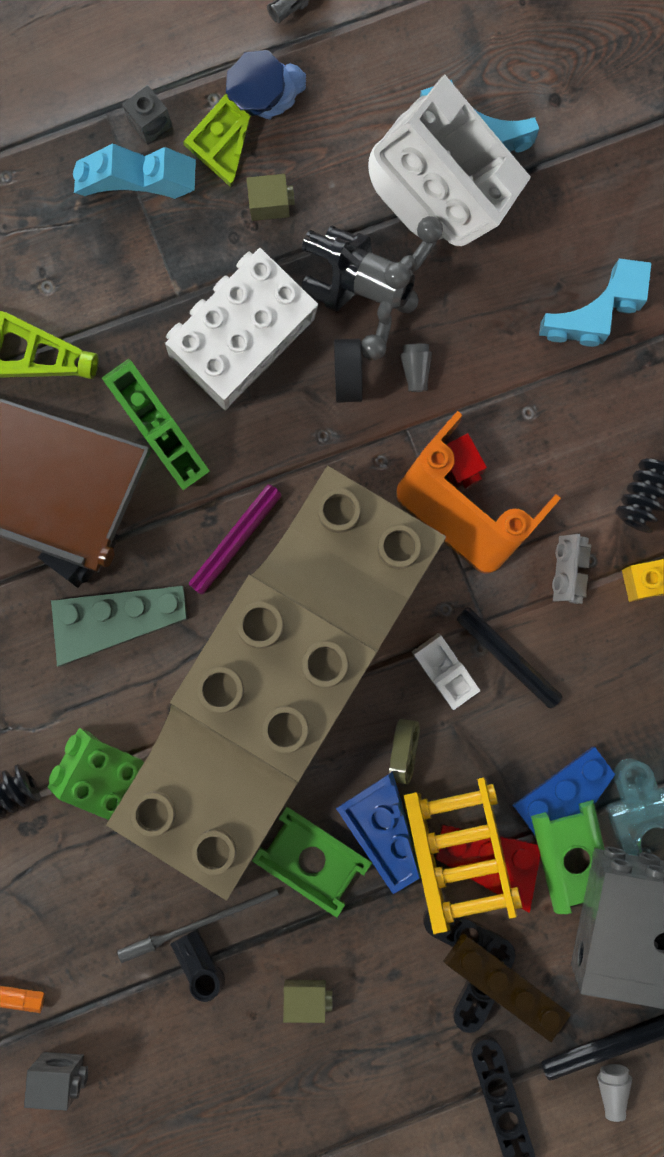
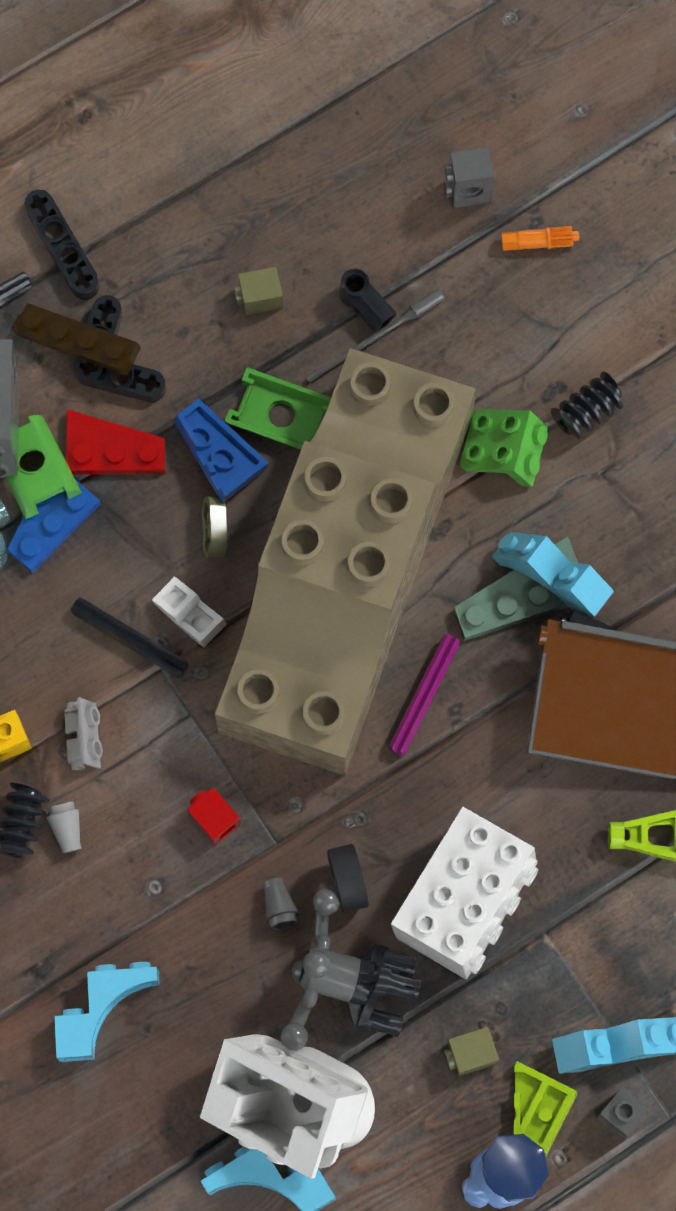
camera: 165 degrees right, 10 degrees down
(81, 630) = (542, 561): none -> medium azure arch
(155, 424) = (530, 782): bright green brick -> none
(435, 878) = (163, 417): yellow fence -> none
(448, 511) = (246, 776): orange windscreen -> none
(604, 484) = (65, 826): none -> light grey cone

